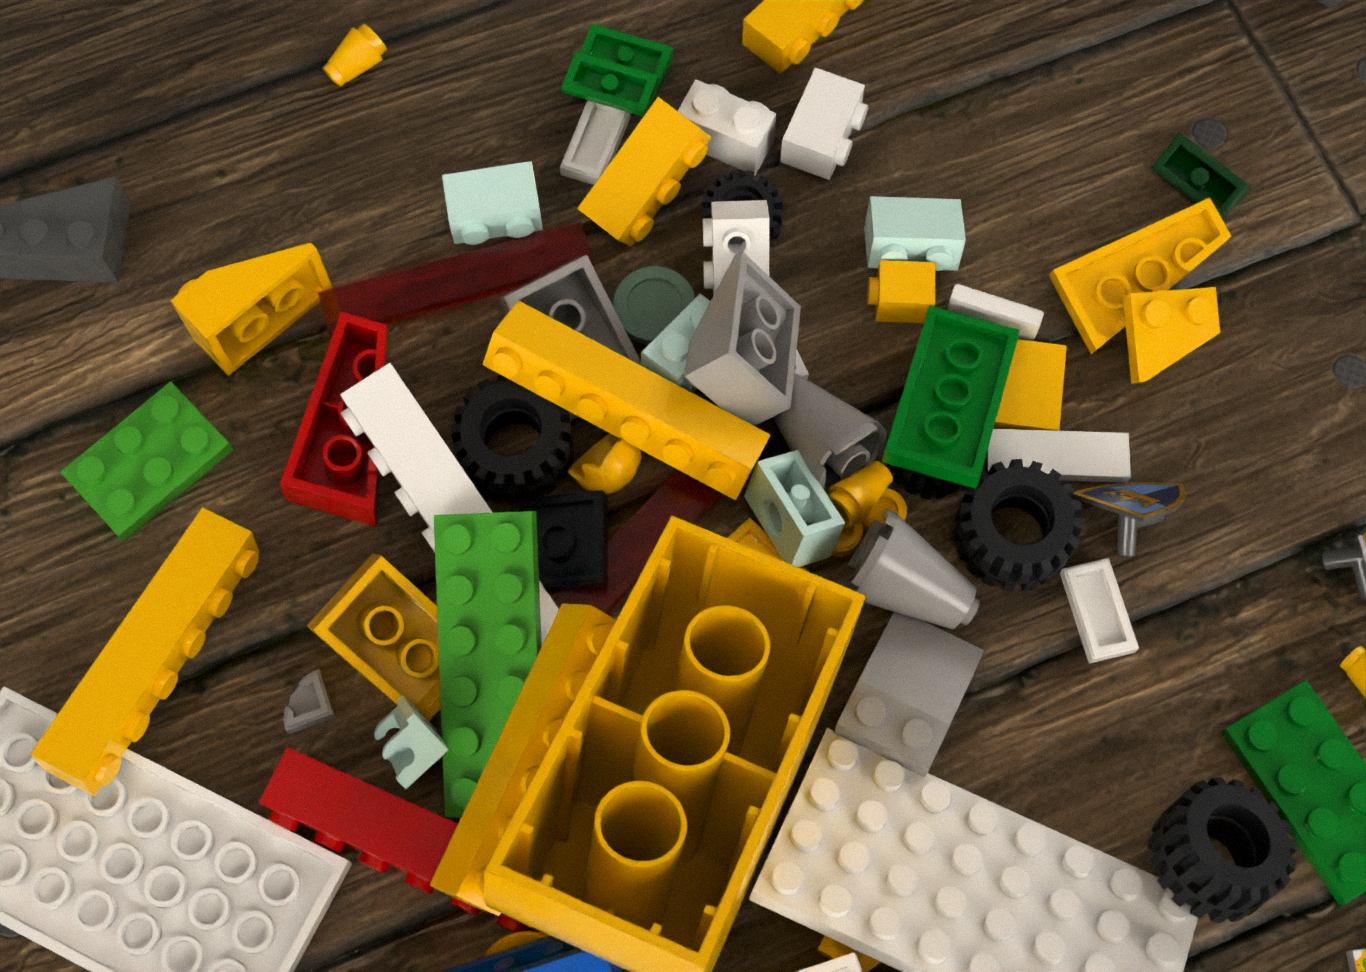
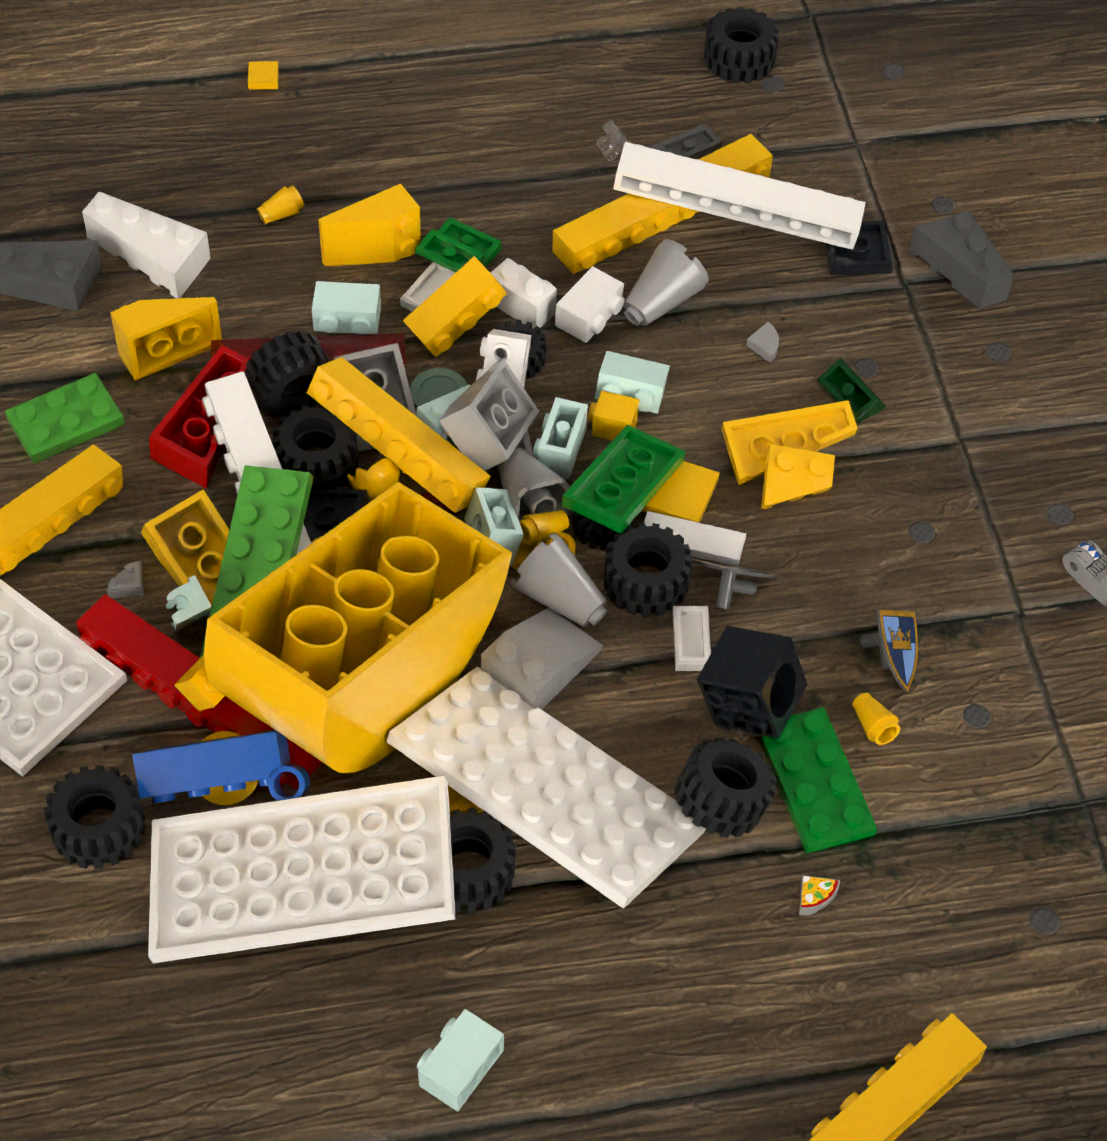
camera: 10 degrees right, 15 degrees down
(187, 155) = (148, 241): none -> white wedge
(445, 334) = (284, 371): none -> black tyre
(497, 73) = (372, 230): none -> yellow slope
(845, 345) = (562, 436): none -> light aqua brick
(915, 69) = (664, 283): none -> light grey cone
(996, 310) = (694, 447): white tile -> none
(1068, 125) = (764, 342): none -> light grey tile
(1216, 680) = (752, 681): none -> black brick

